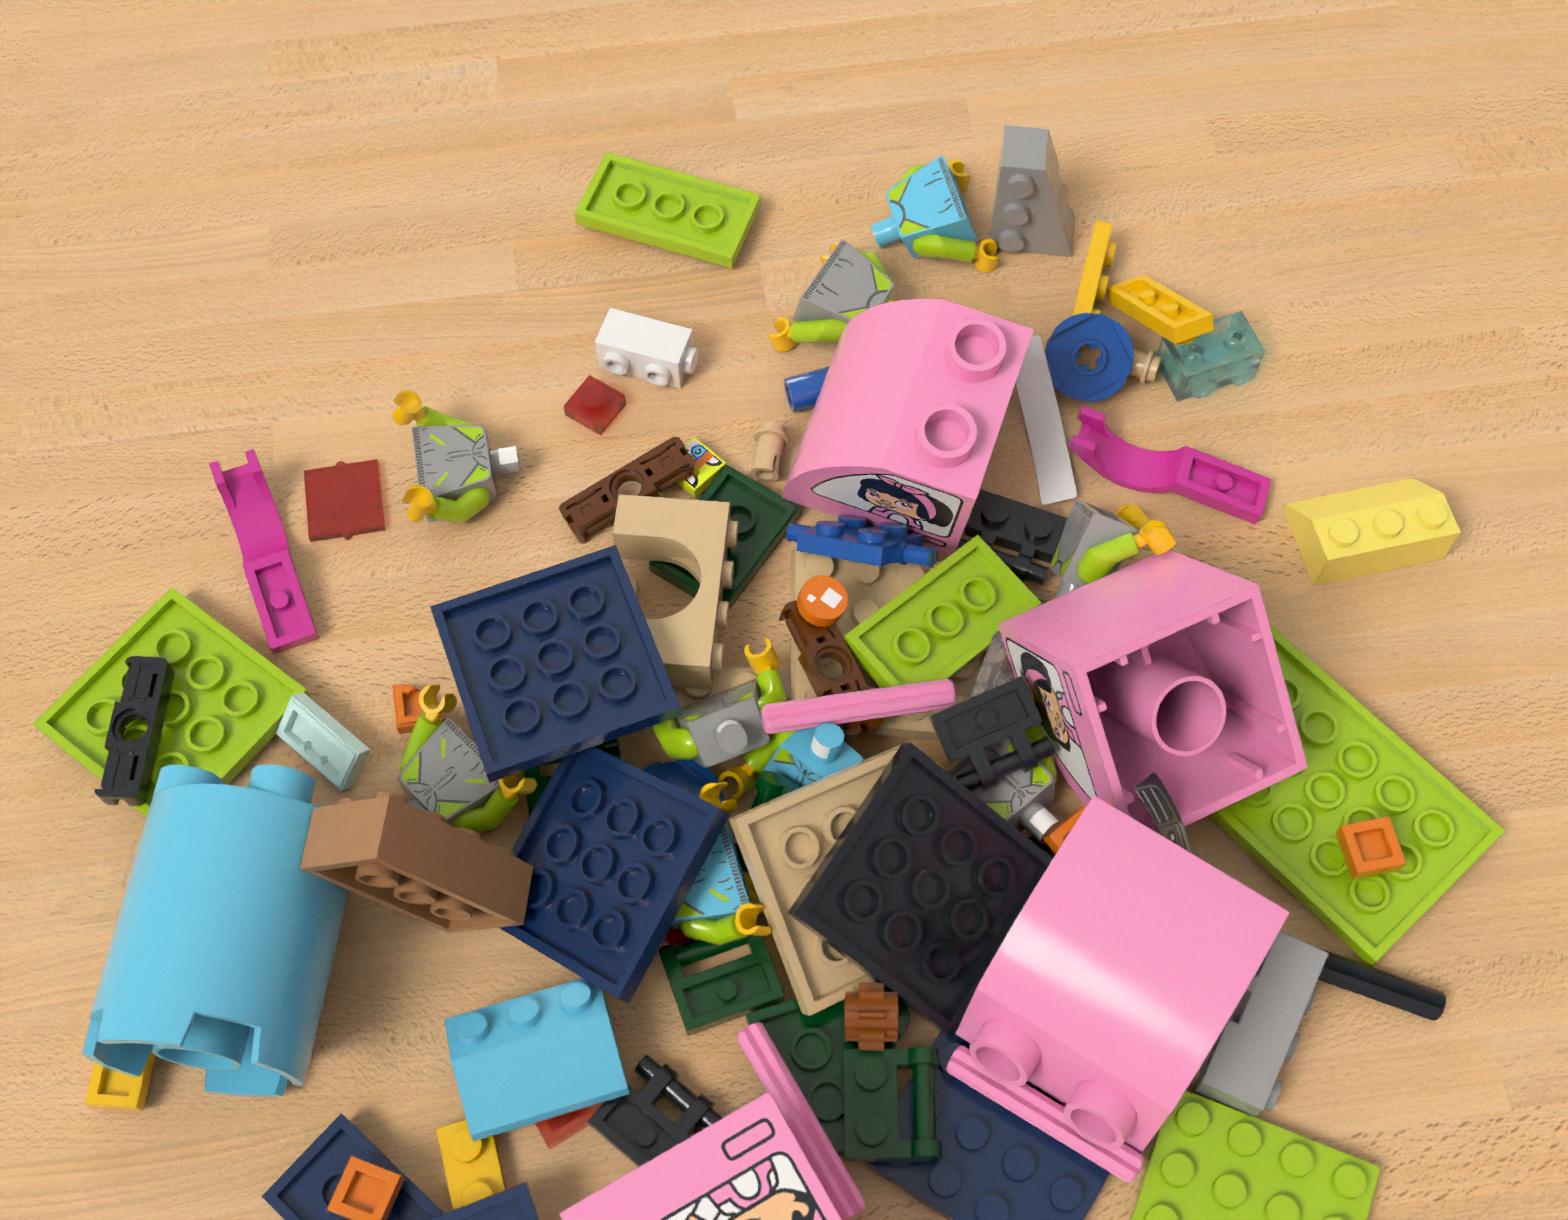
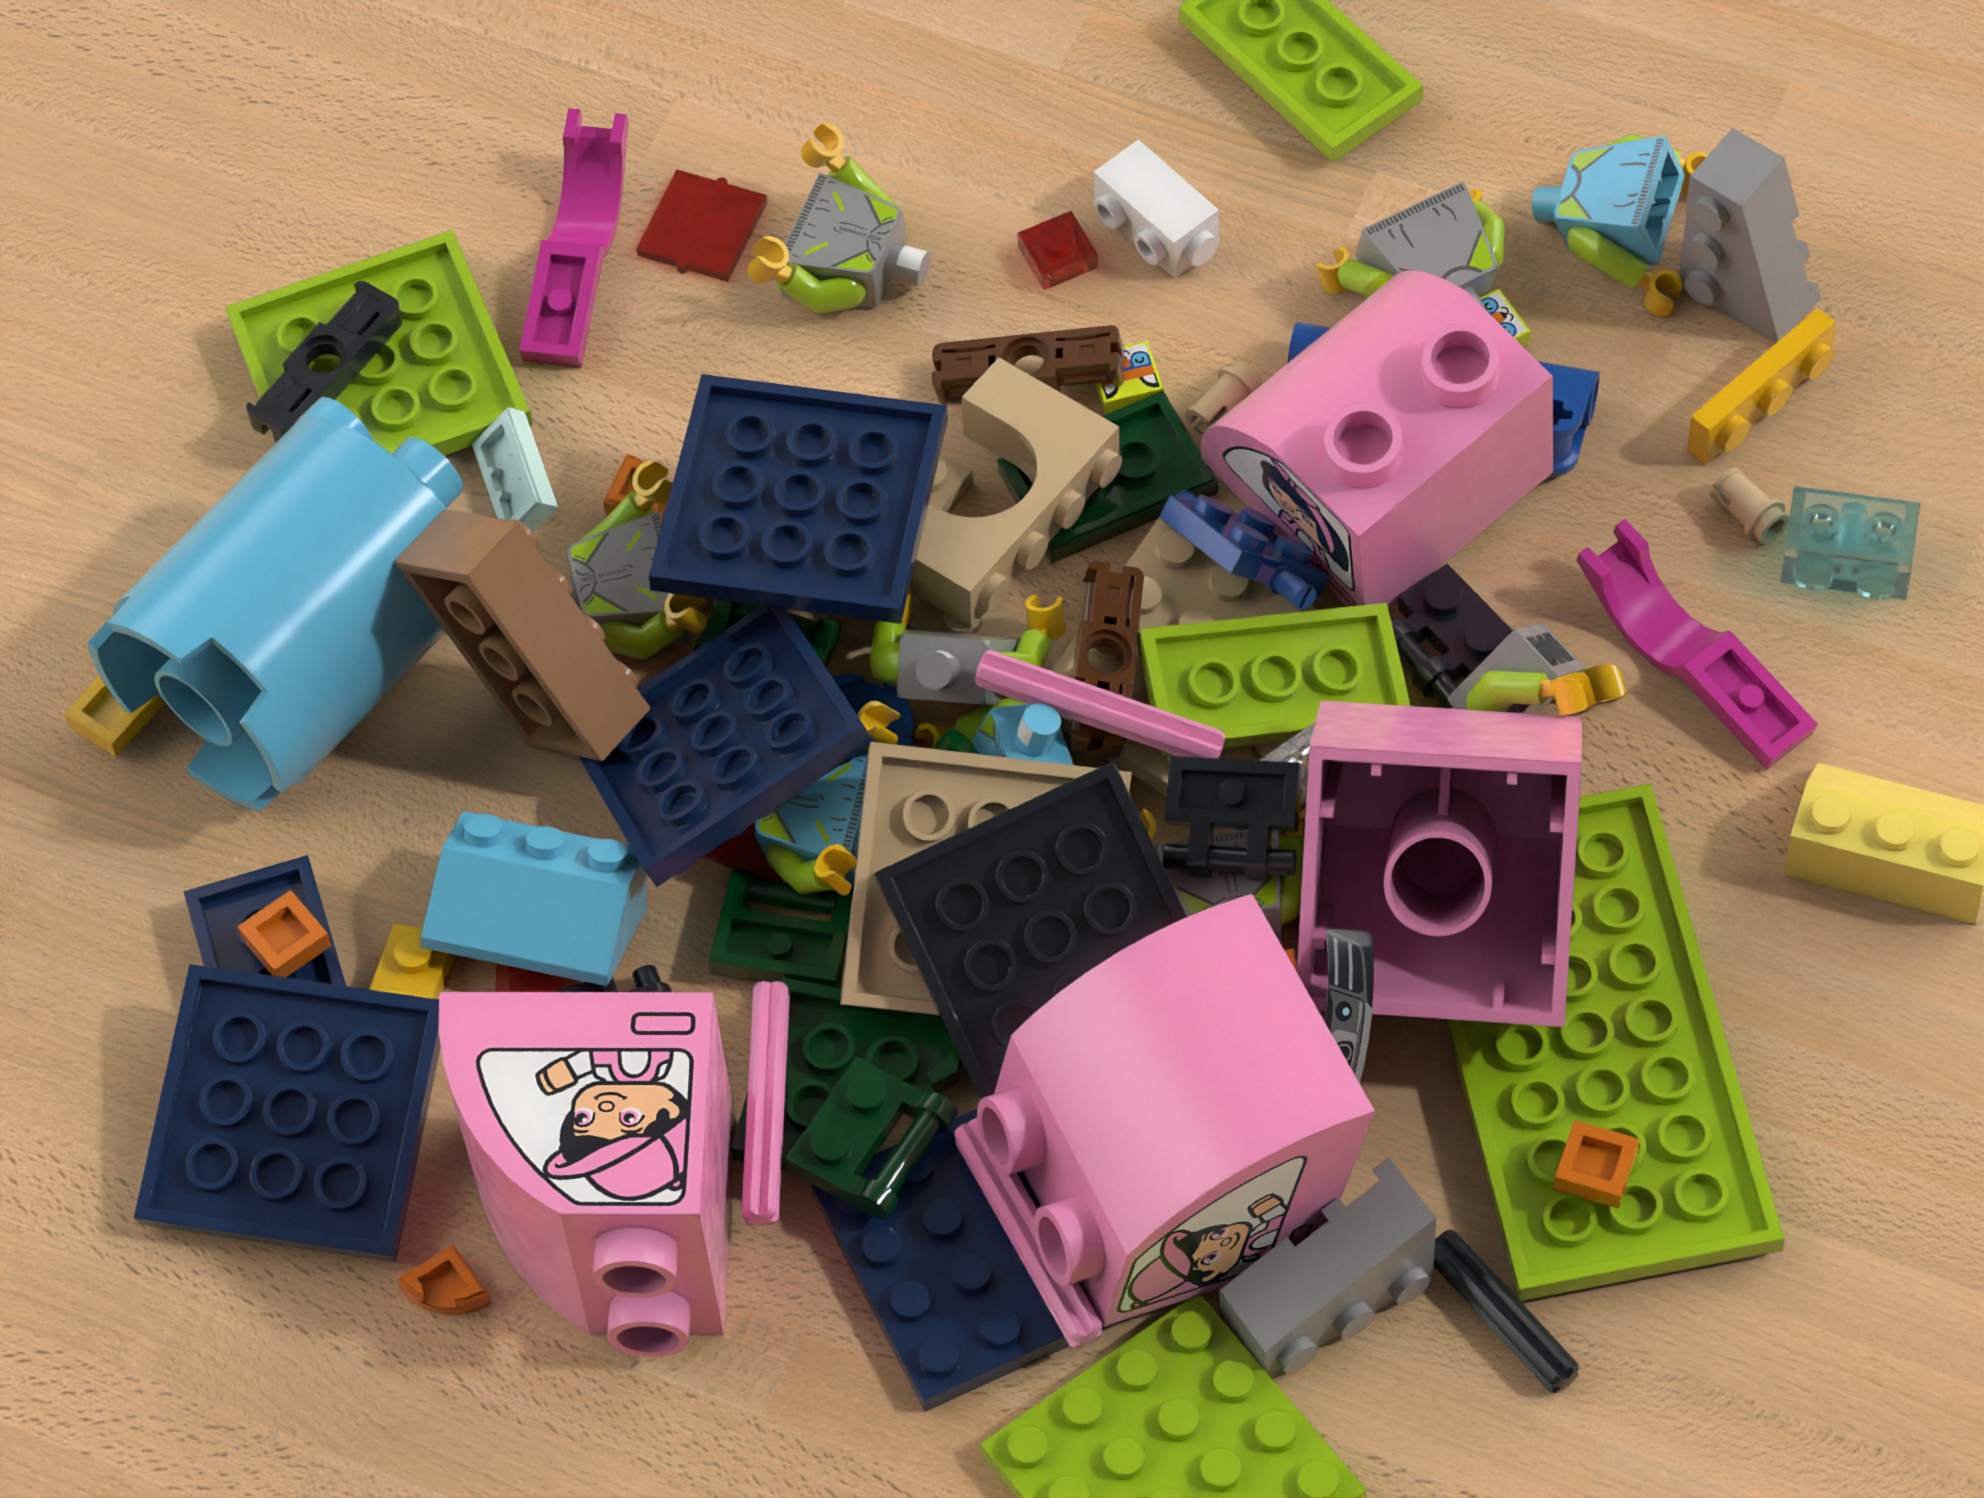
camera: 35 degrees right, 5 degrees down
(822, 600) = (1136, 577): orange tile -> none
(871, 1016) = (904, 1036): dark orange gear -> none
(1044, 426) = (1585, 516): white sticker -> none
(1112, 364) = (1719, 476): blue plate -> none
(1160, 309) = (1814, 453): yellow plate -> none

